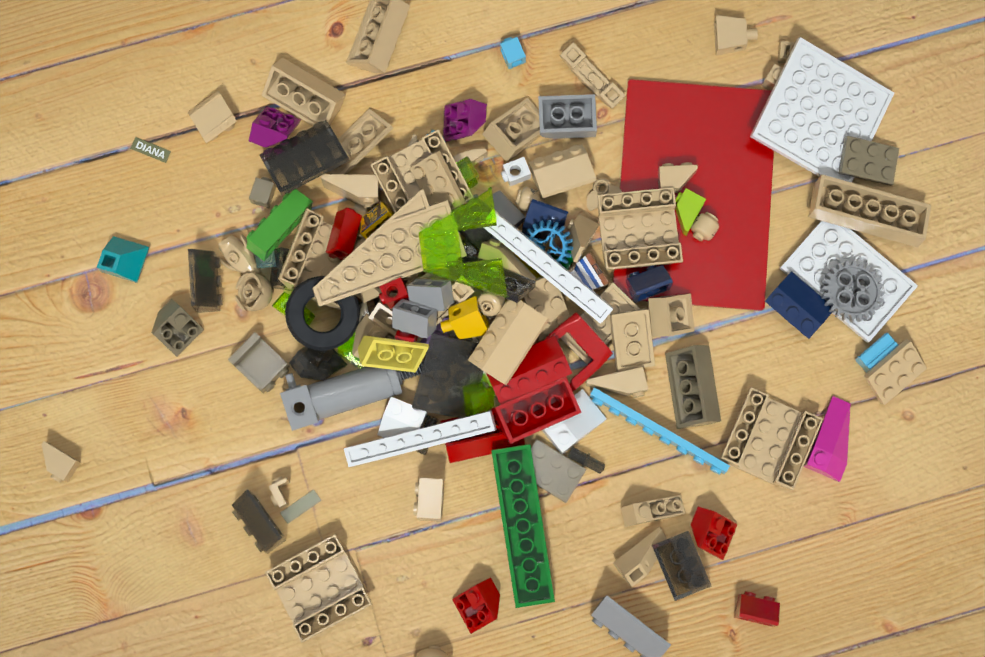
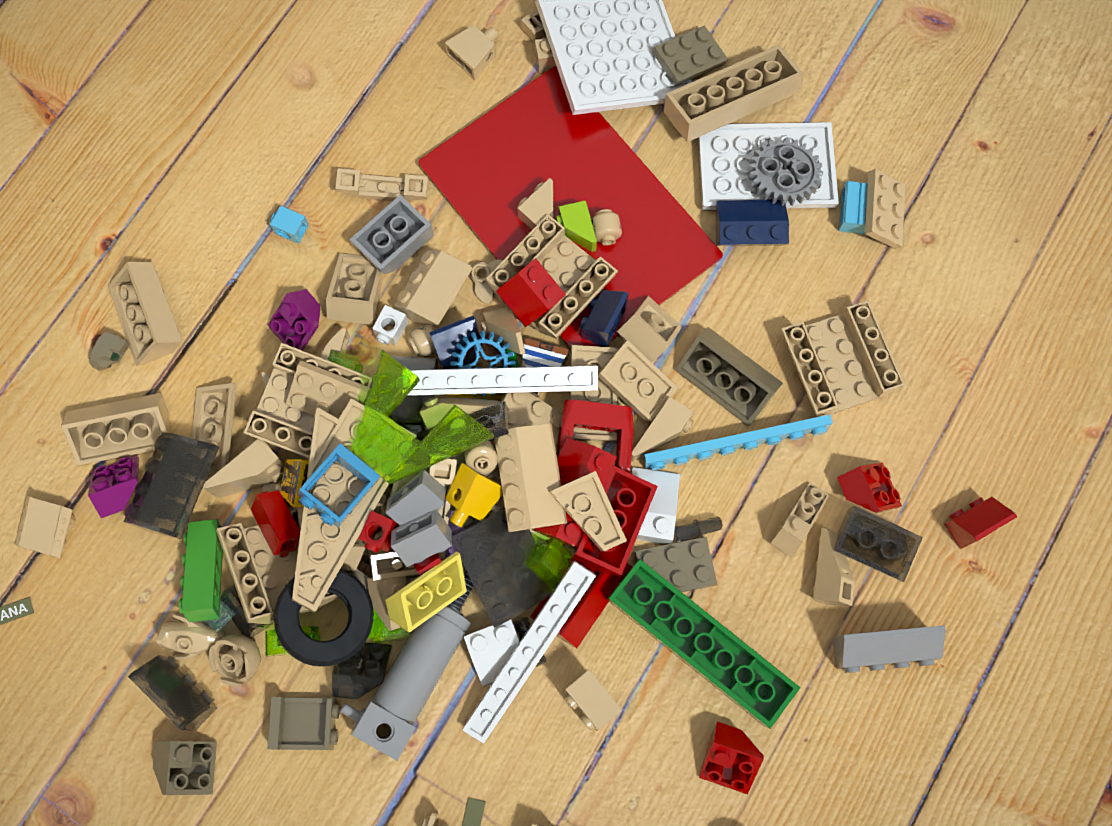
camera: 45 degrees left, 5 degrees down
(123, 259) = (69, 747): teal slope -> none
(262, 192) = (159, 554): dark tan brick -> none
(336, 40) = (107, 351): none -> dark tan rock
(413, 242) = (353, 465): none -> dark azure window
(526, 390) = (591, 510): none -> tan wing
(615, 228) = (530, 292): none -> red slope
(830, 447) = (898, 325): dark pink wedge -> none

